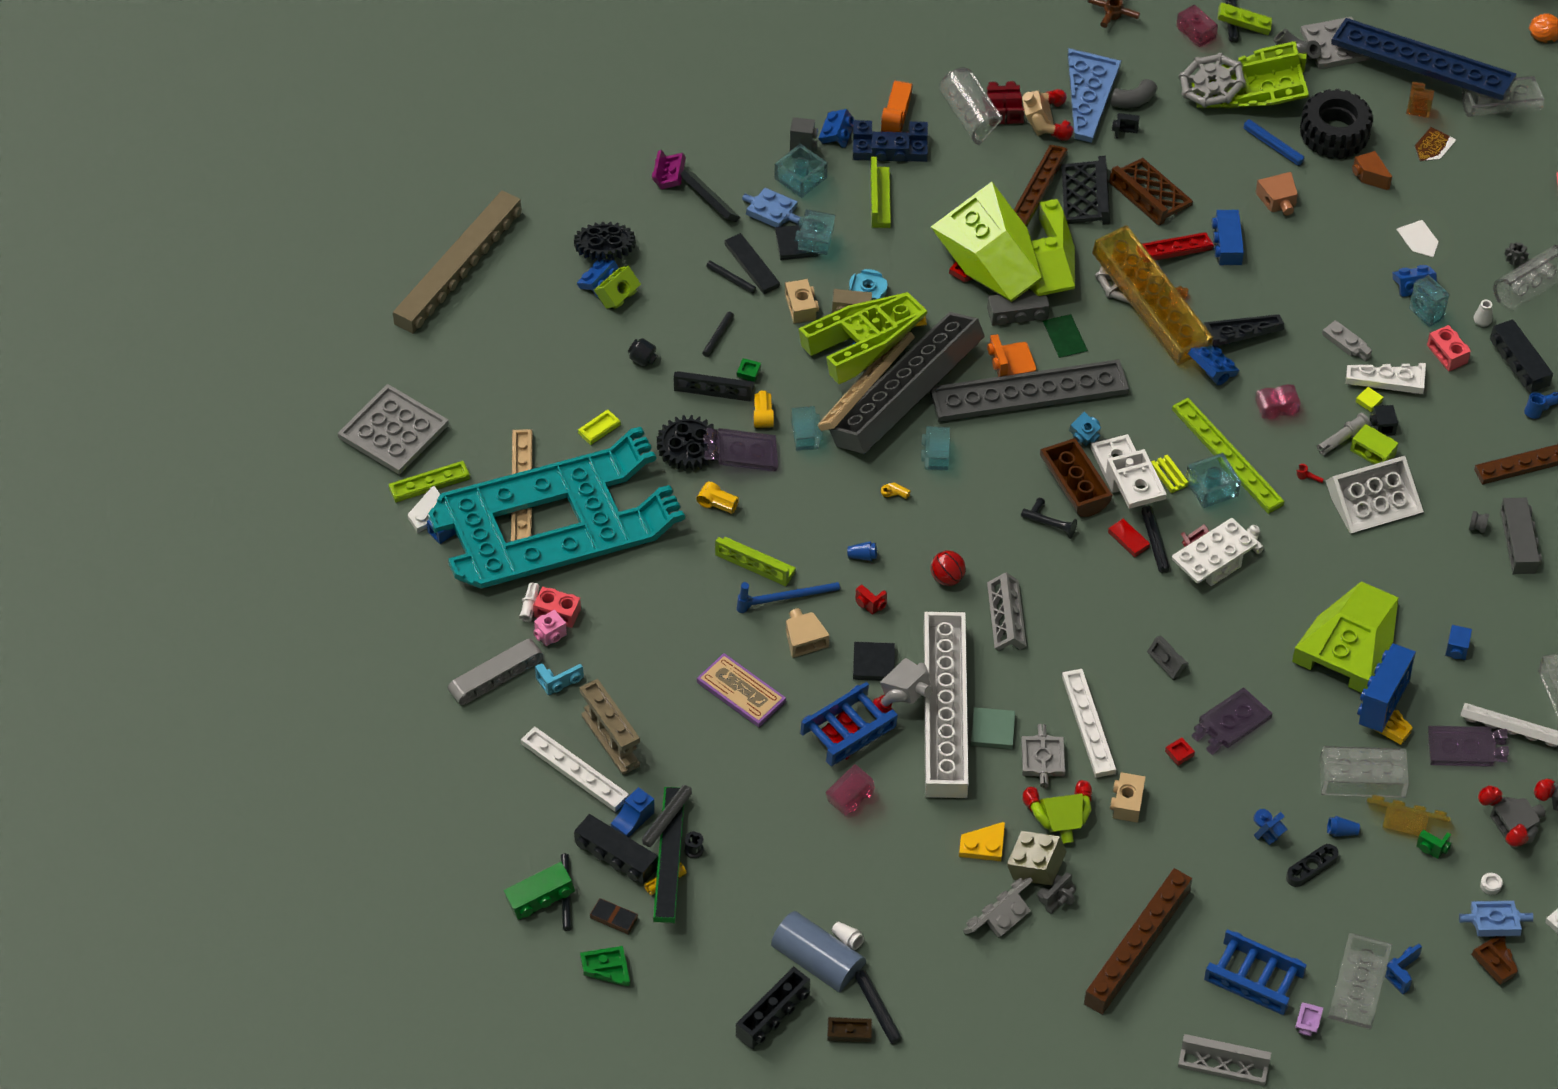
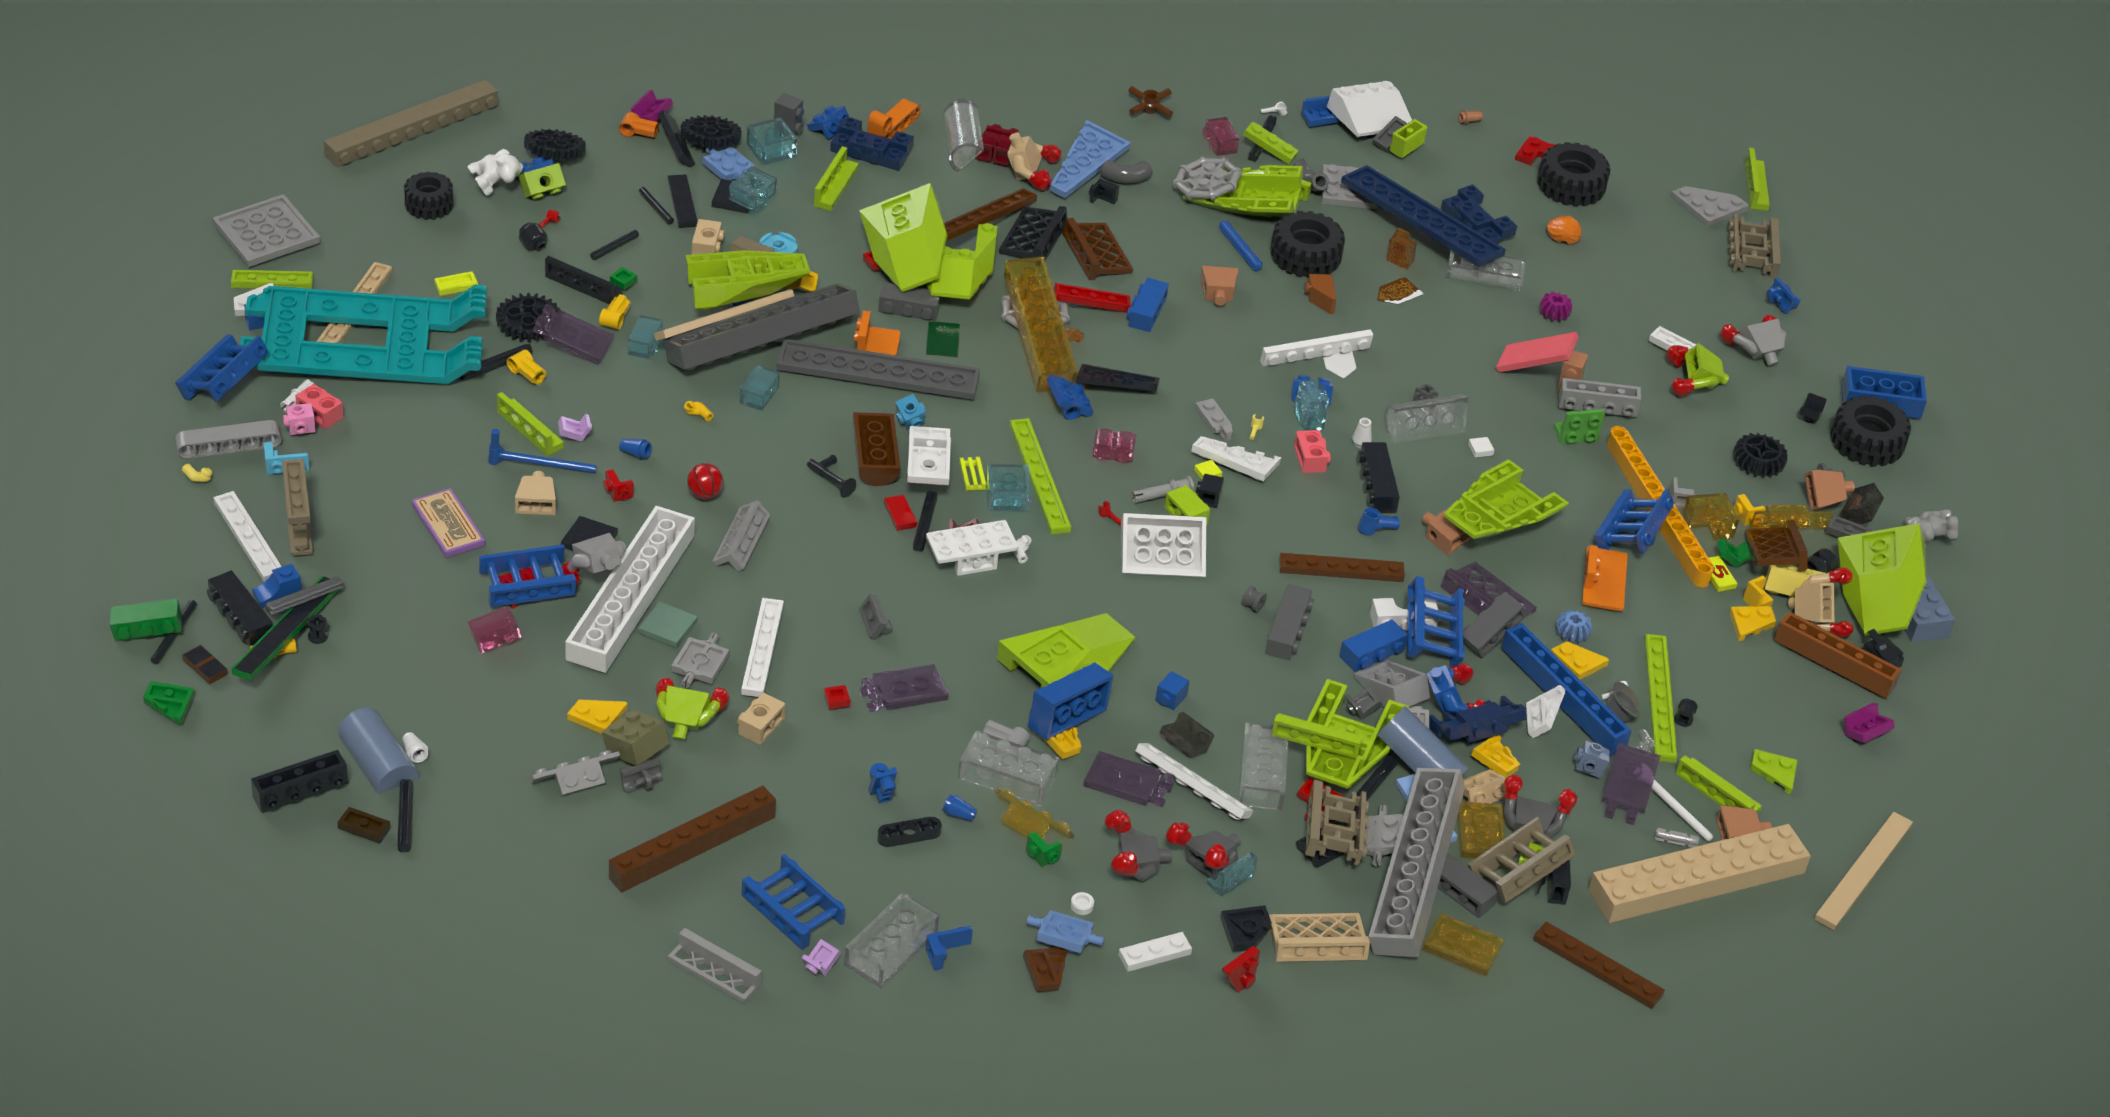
camera: 15 degrees right, 10 degrees down
(437, 589) = (221, 367): none -> blue fence
(490, 720) = (195, 476): none -> light yellow arm
(518, 328) = (428, 195): none -> black tyre
(582, 287) = (493, 168): none -> white animal
(645, 321) = (552, 215): none -> red hand
(662, 194) = (633, 125): none -> orange piece
(690, 495) = (496, 361): none -> black axle
(738, 177) = (710, 131): none -> black gear
(798, 550) = (575, 429): none -> lavender bracket
(1351, 738) = (1016, 735): none -> light grey piece
(1385, 334) = (1256, 424): none -> light yellow hand
(1395, 235) = (1316, 347): none -> white plate
(1455, 39) = (1467, 210): none -> dark blue bracket
(1495, 683) = (1188, 735): none -> clear smoke bracket

